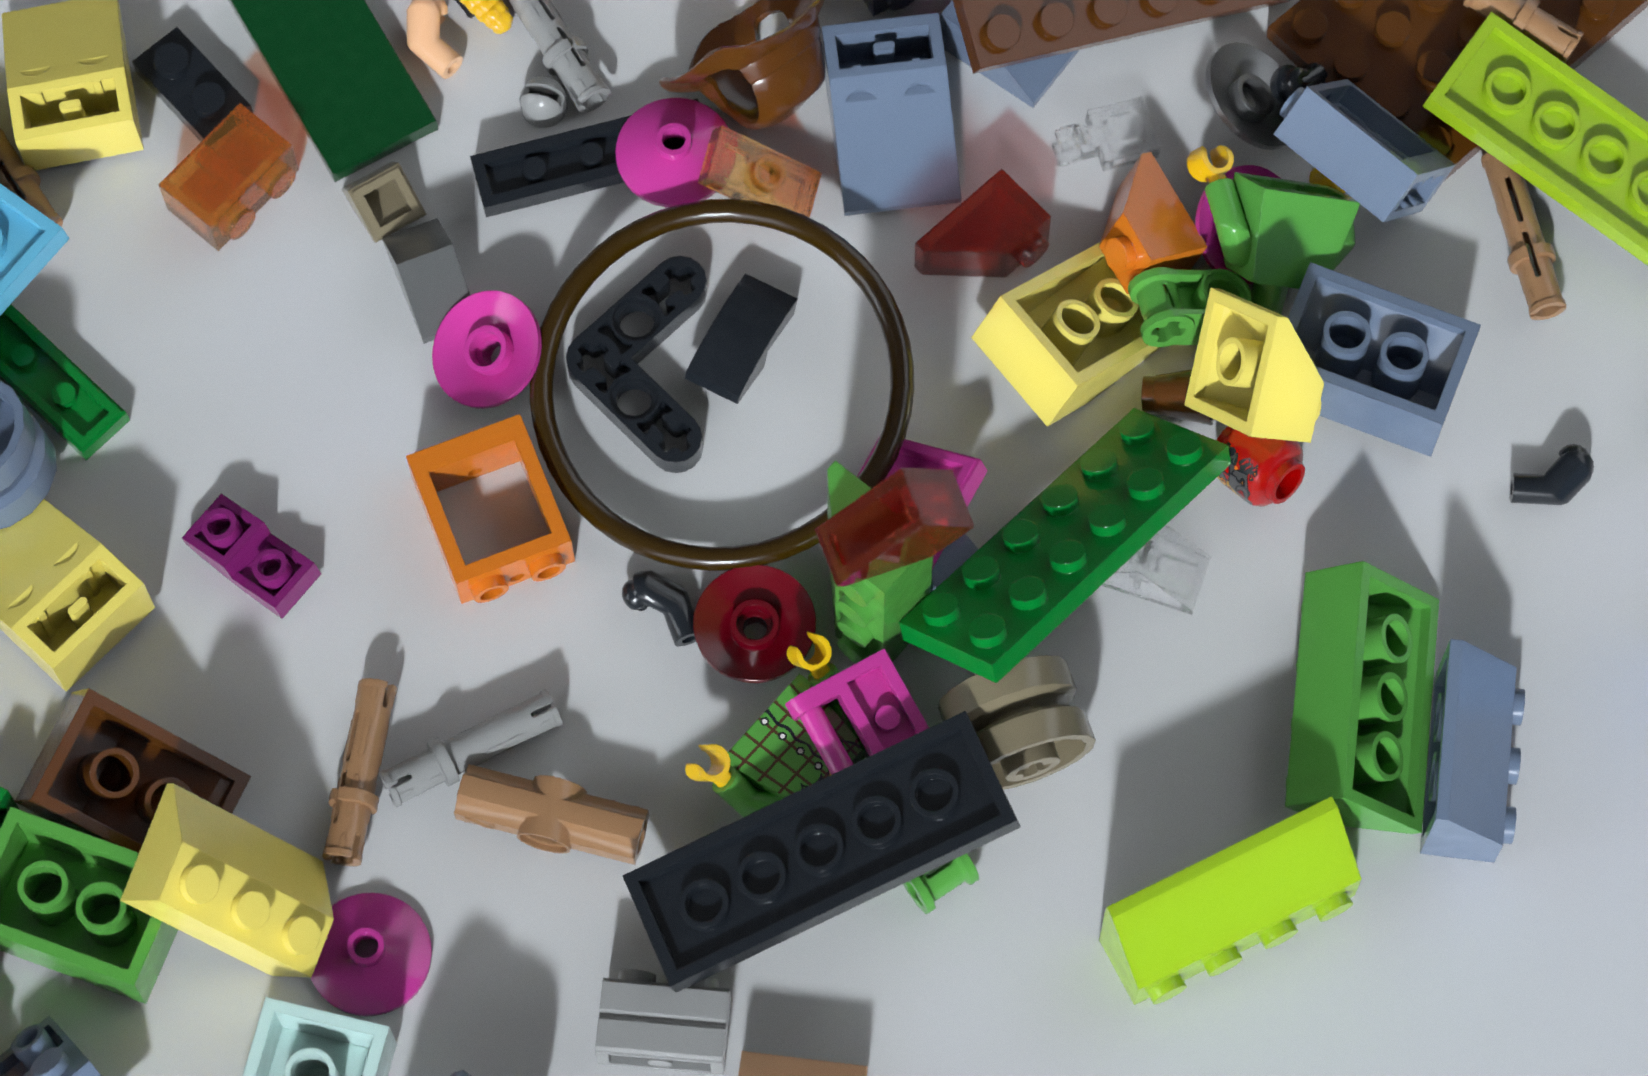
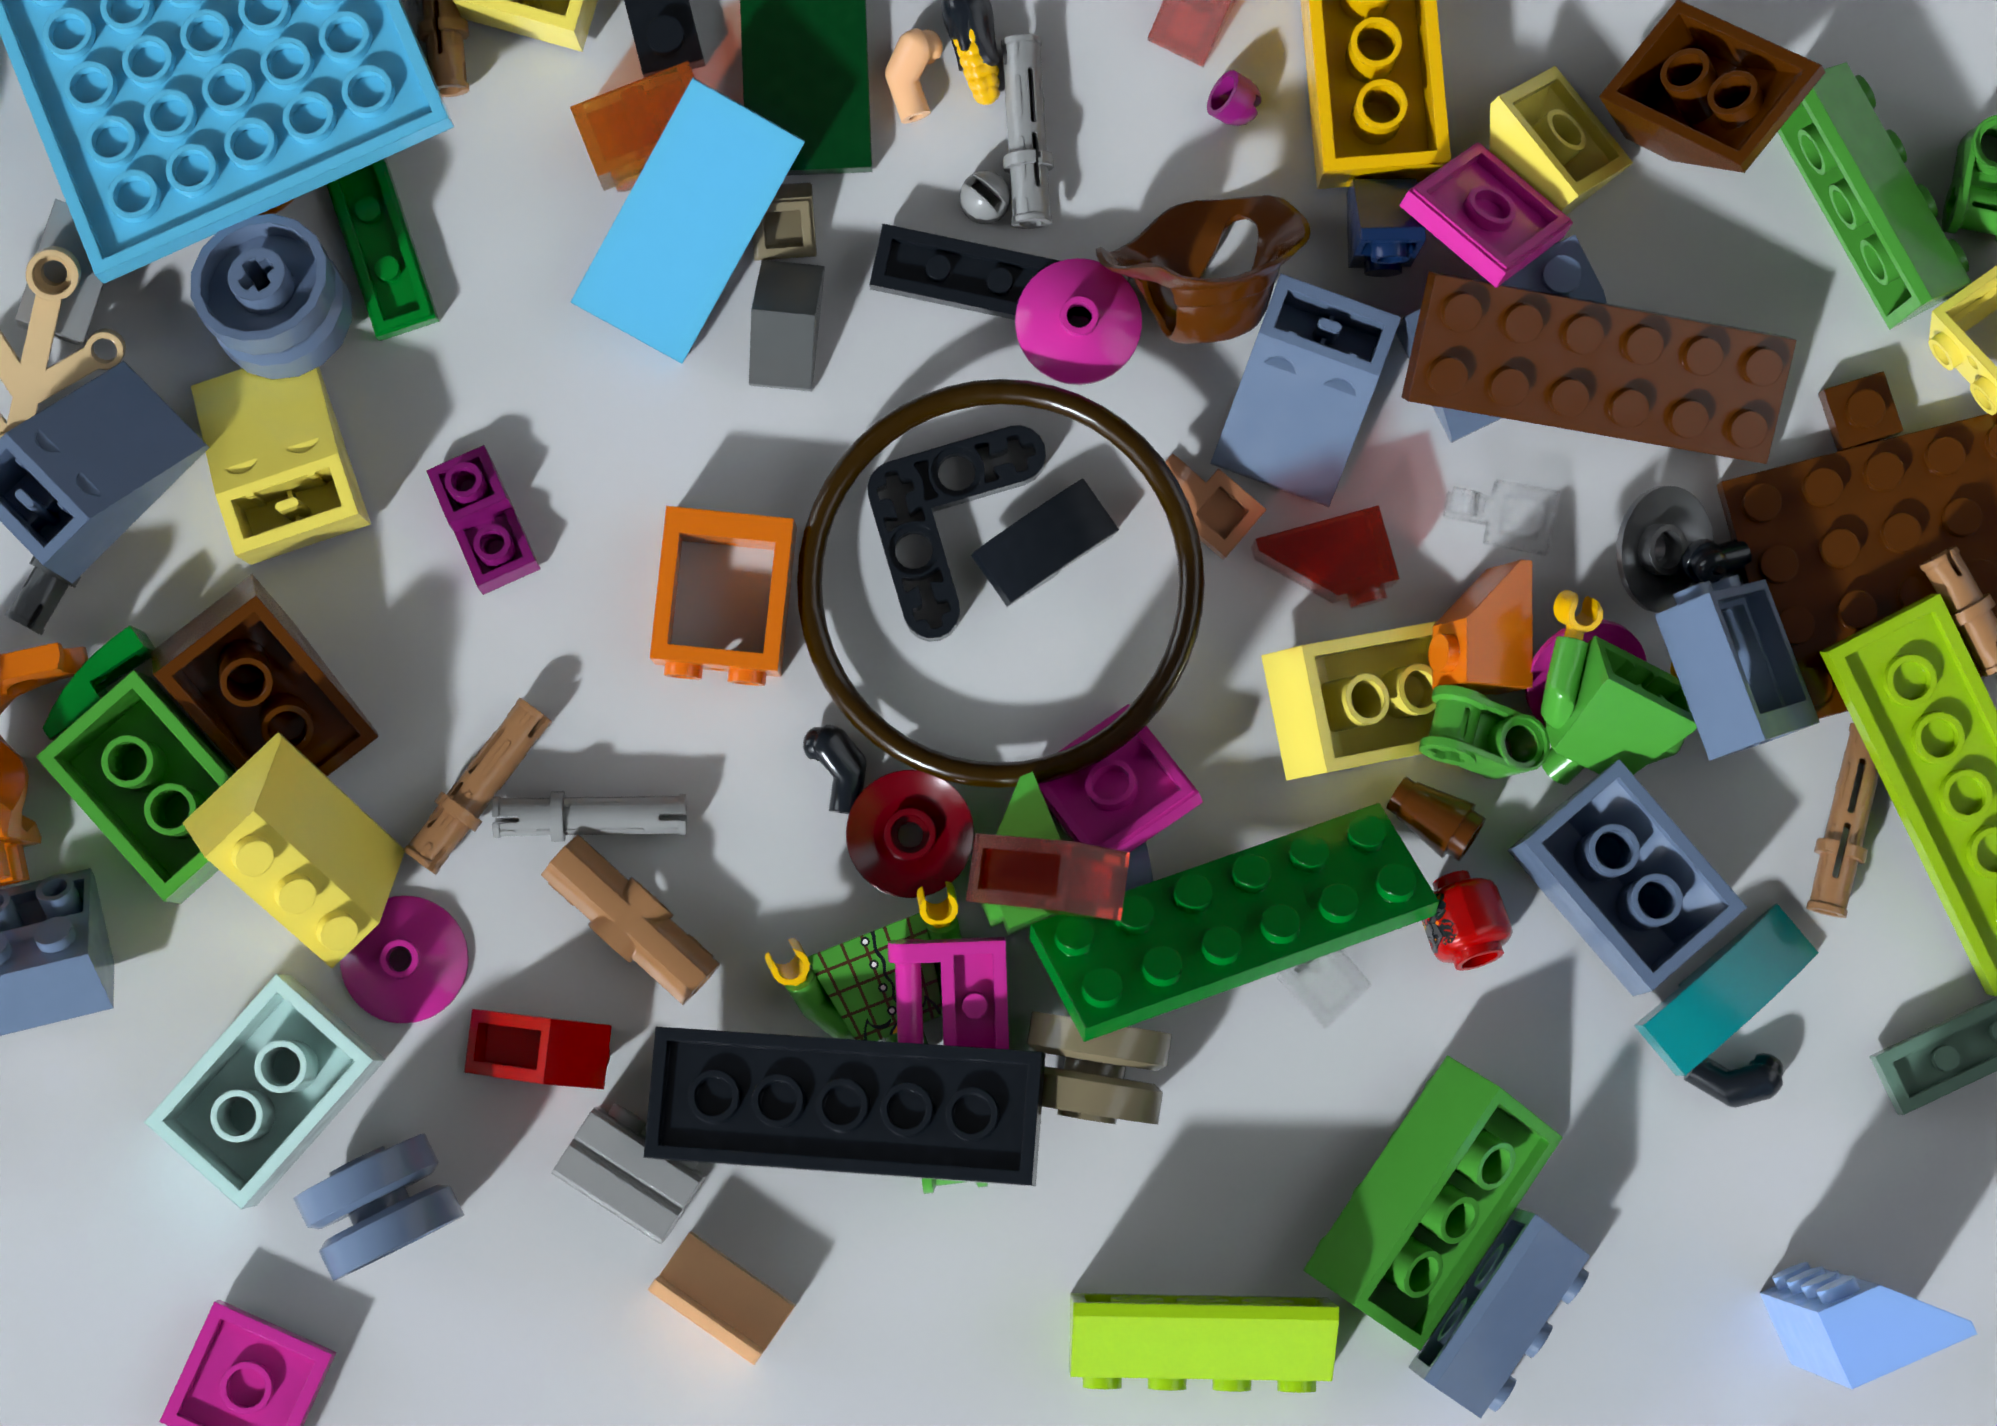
camera: 25 degrees right, 15 degrees up
(304, 227) = (687, 220): none -> medium azure tile
(466, 345) = (777, 425): dark pink dish -> none
(527, 960) = (538, 1049): none -> red slope
(757, 173) = (1145, 389): clear orange plate -> none
(876, 237) = (1218, 507): none -> nougat plate
(1254, 371) = (1495, 853): light yellow slope -> none
(1503, 413) = (1726, 991): none -> teal slope

